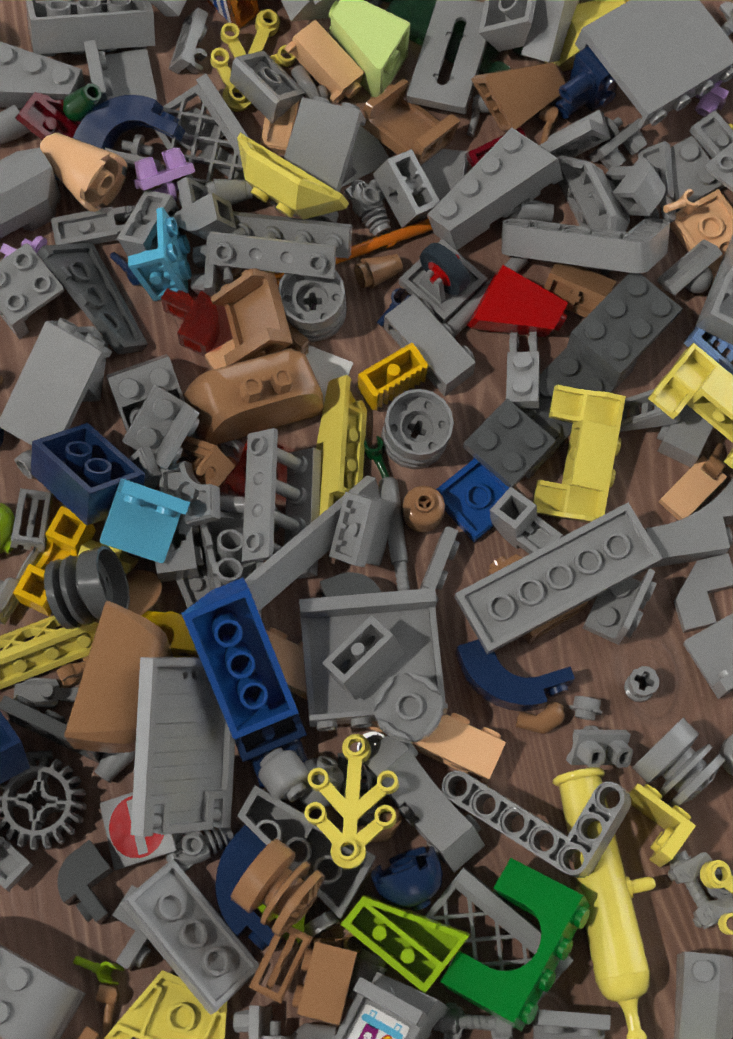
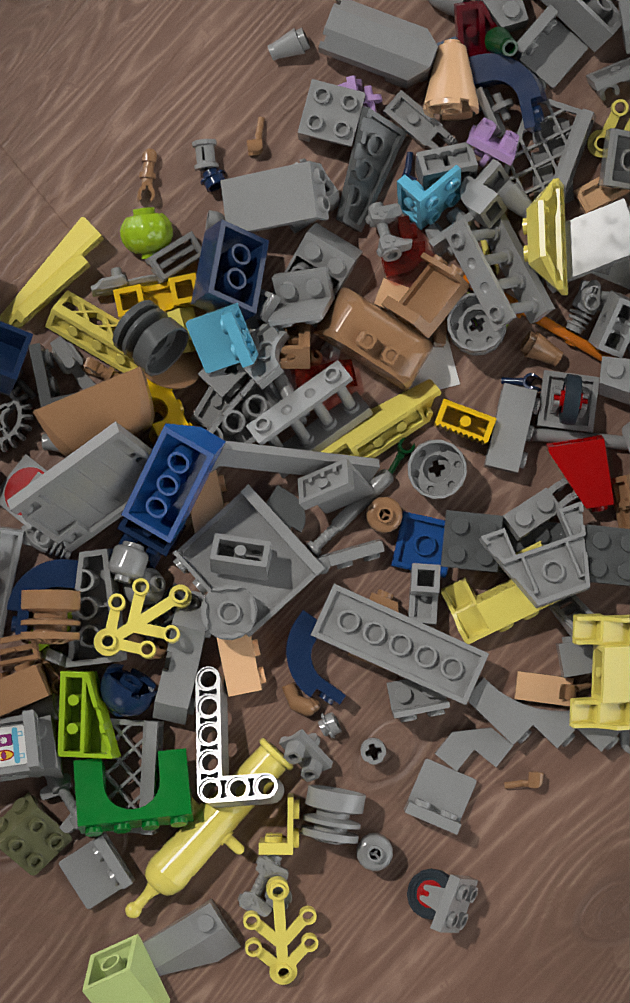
camera: 60 degrees right, 15 degrees up
(181, 319) = (389, 246): none -> light grey piece
(590, 391) = (549, 570): none -> light grey wing

